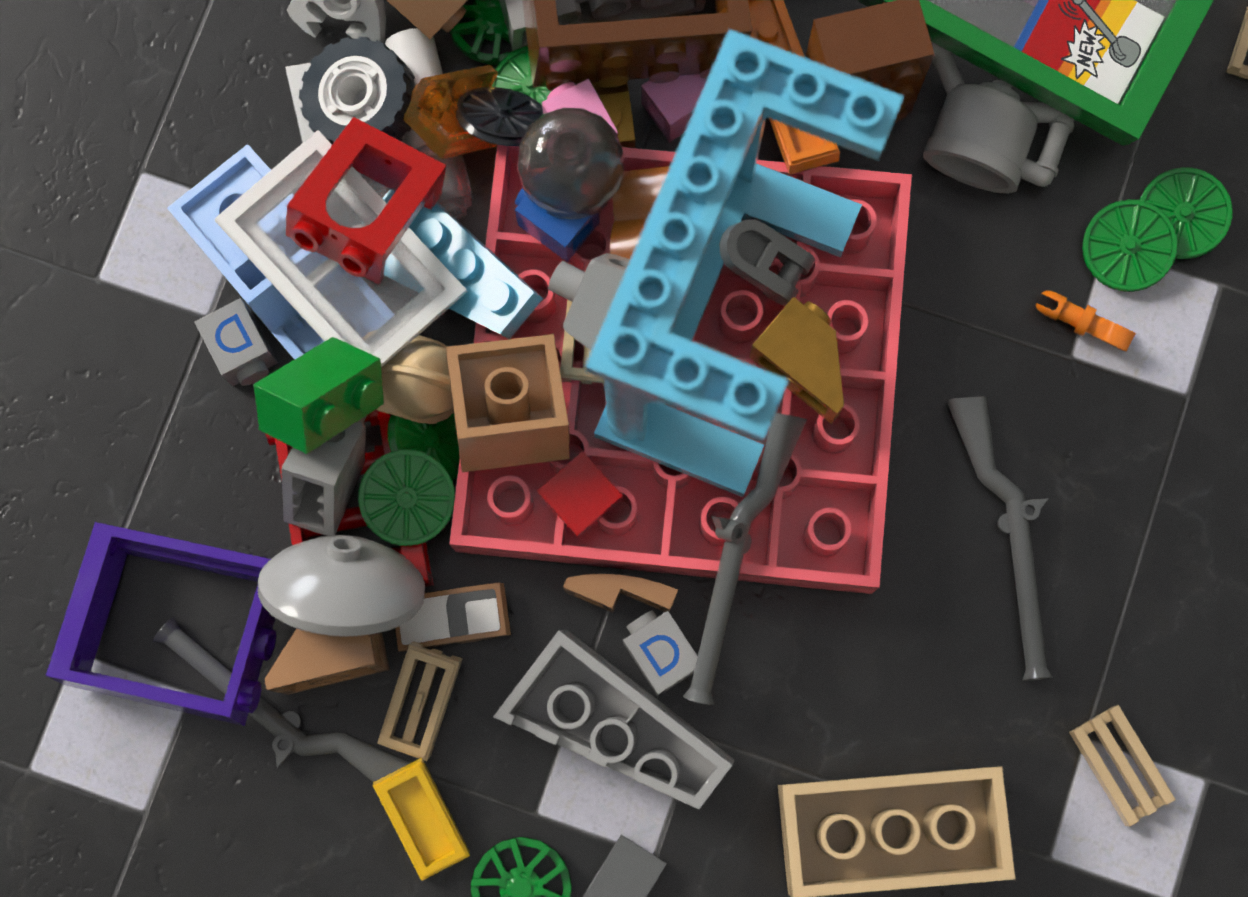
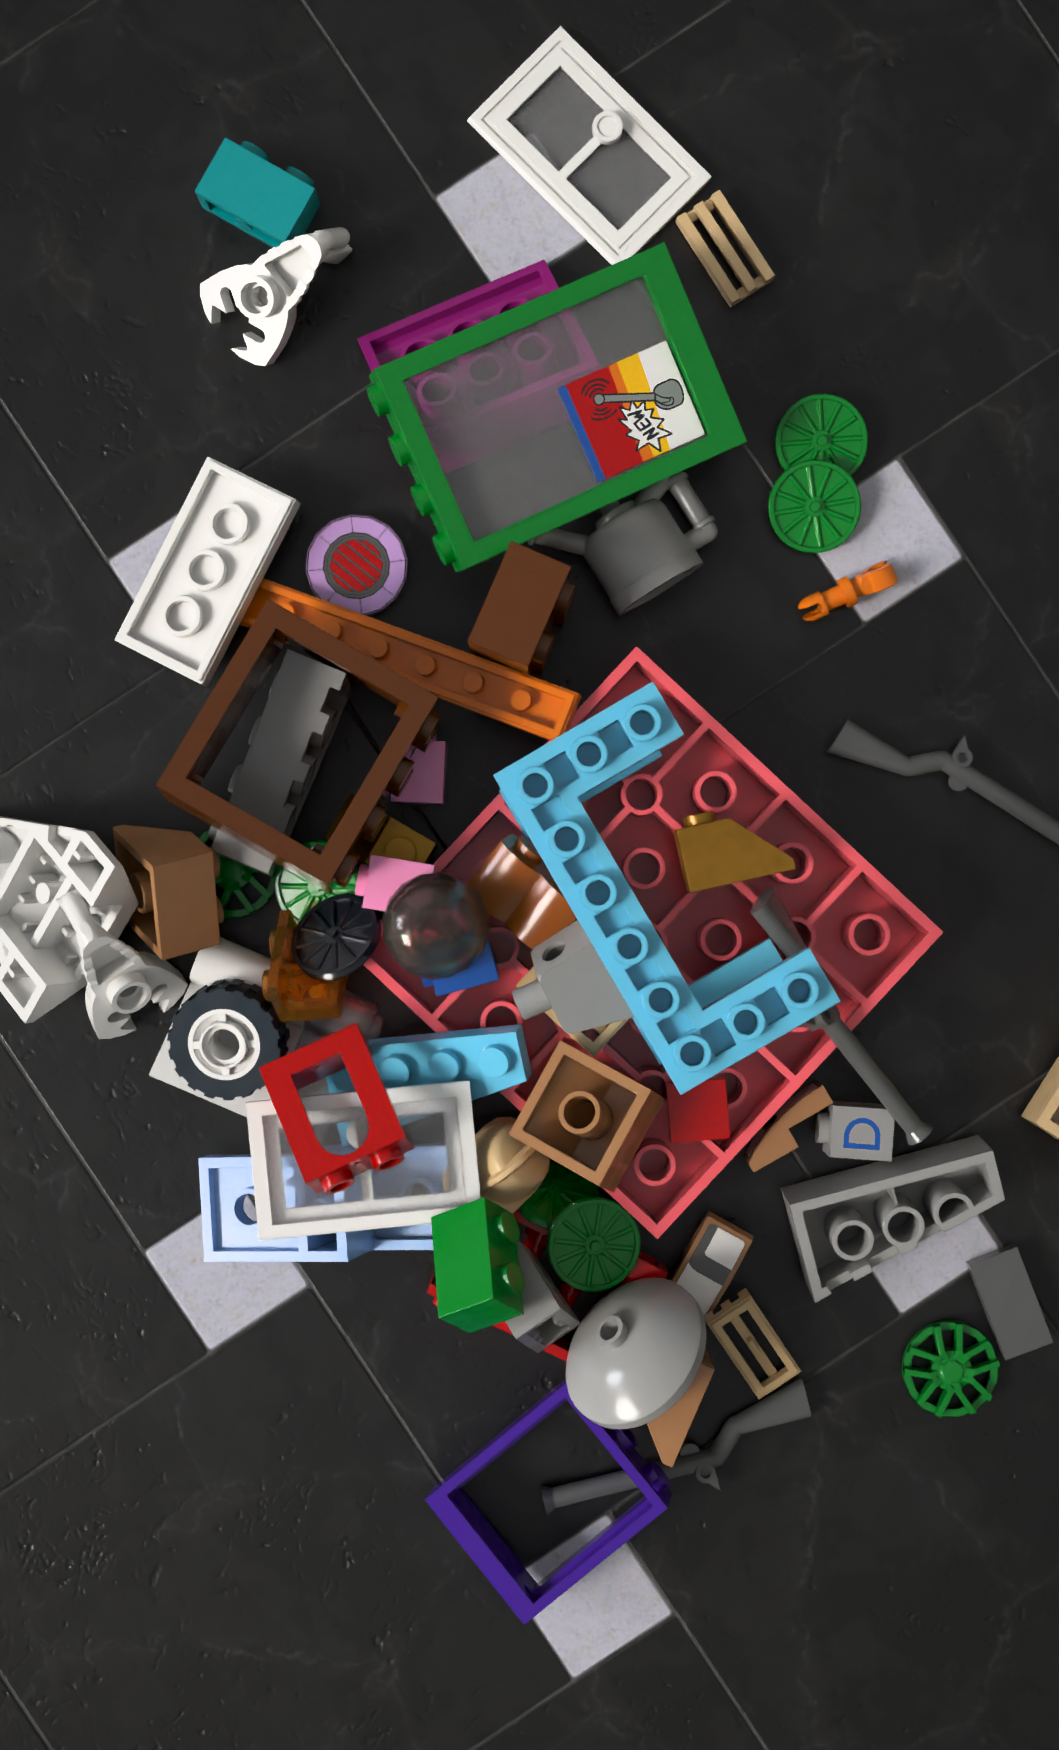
camera: 55 degrees left, 10 degrees up
(236, 343) = (358, 1285): light grey brick -> none
(421, 819) = (842, 1407): yellow tile -> none
(750, 250) = (617, 827): dark grey plate -> none

